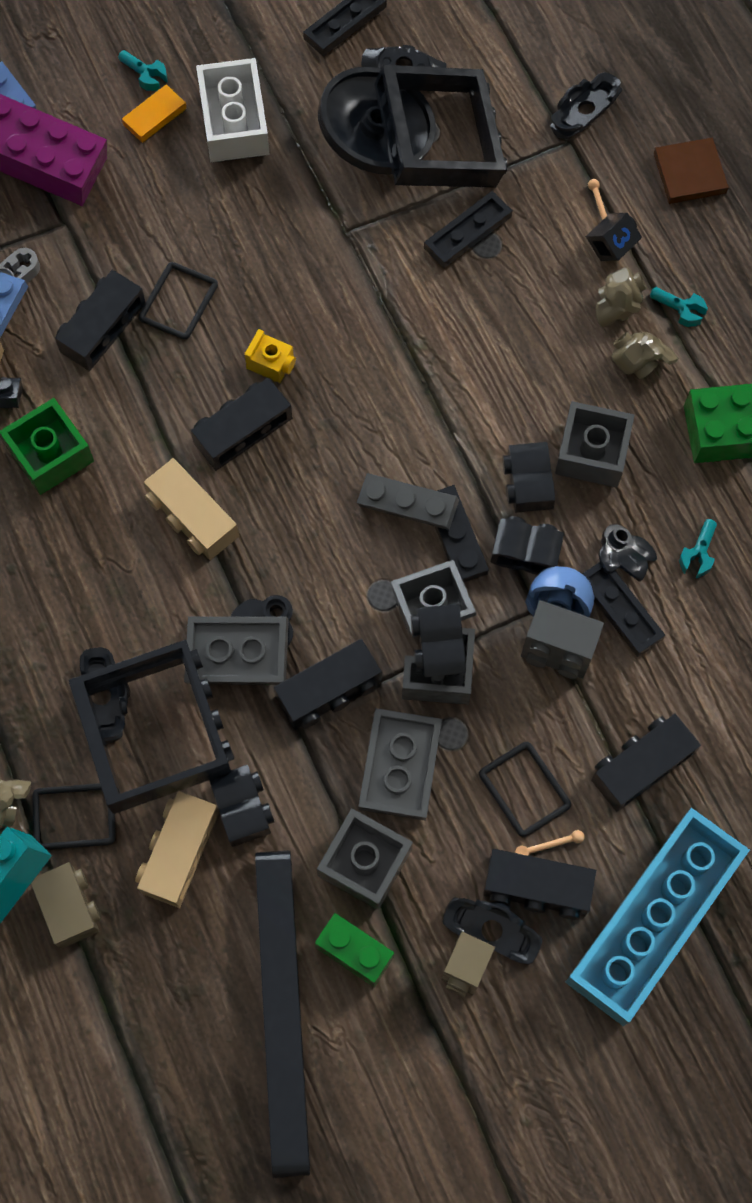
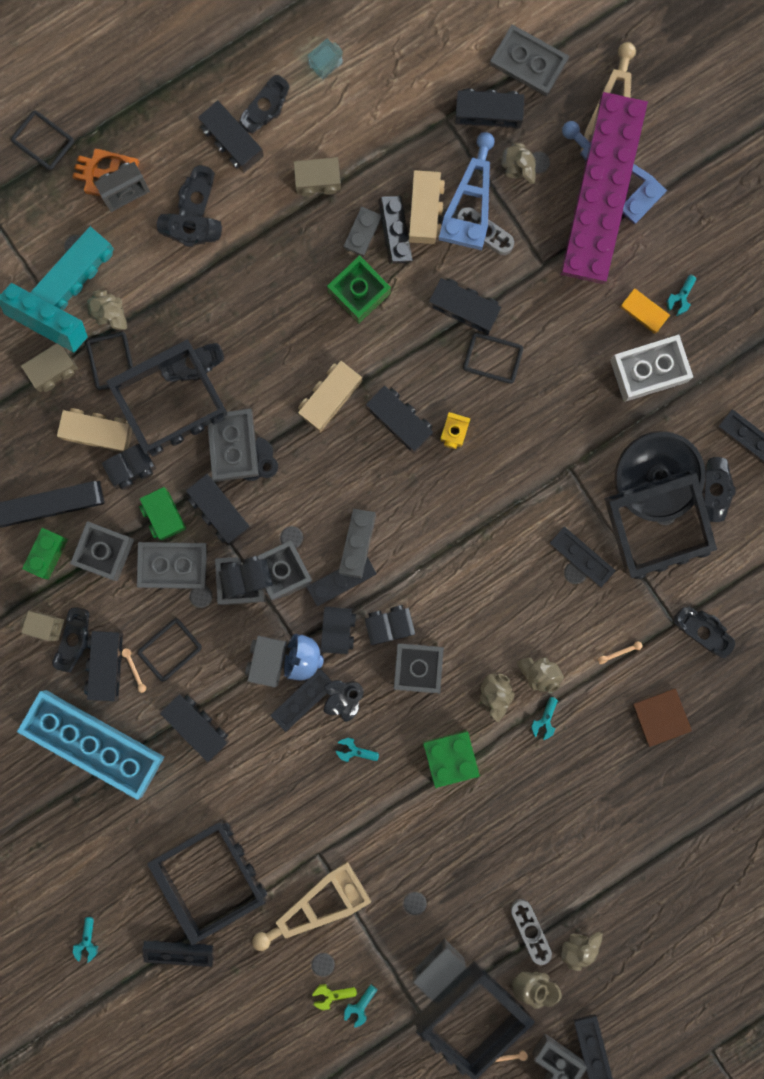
camera: 80 degrees right, 15 degrees up
(322, 766) = (162, 514): none -> green brick
(614, 236) = (590, 665): black brick -> none

